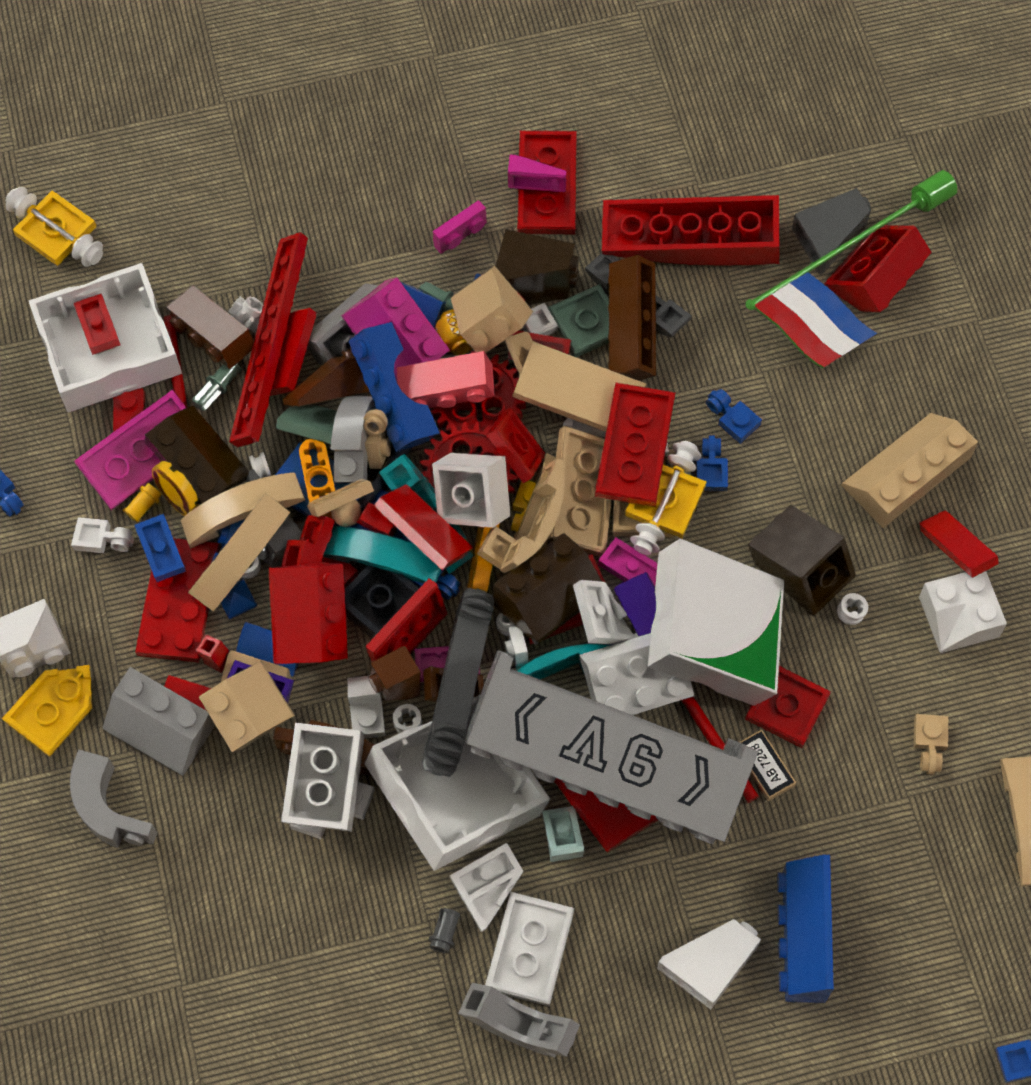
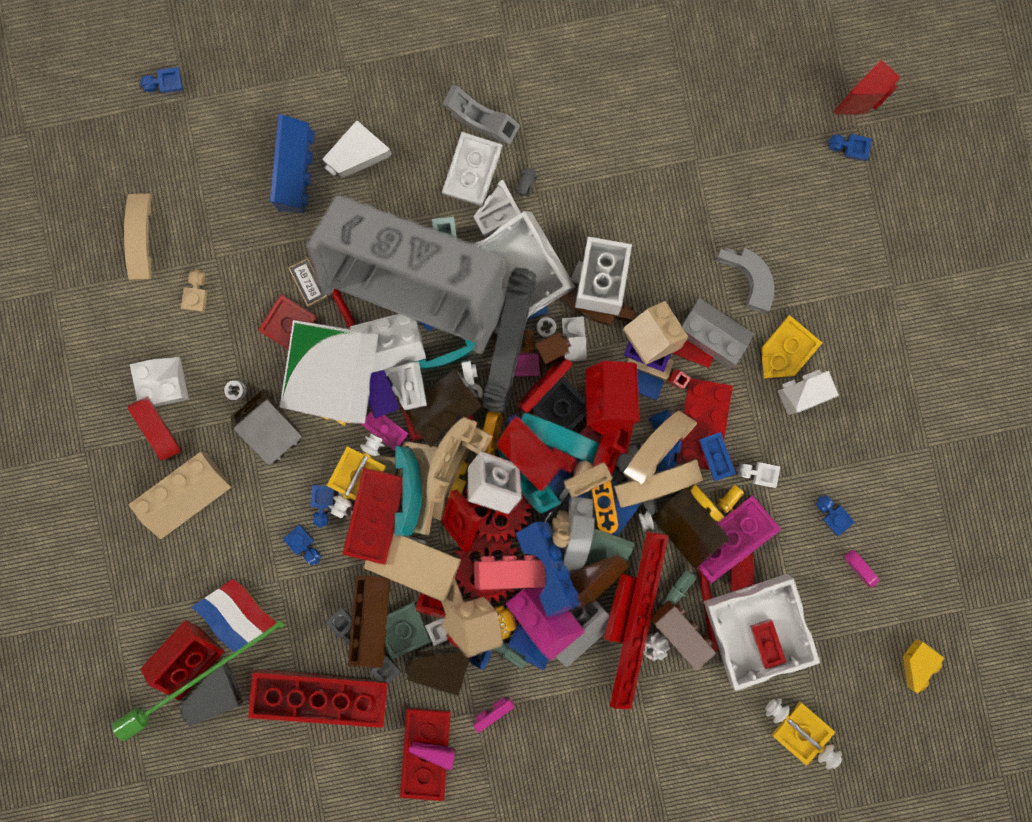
camera: 175 degrees left, 20 degrees up
(593, 513) = (412, 491): none -> teal slope

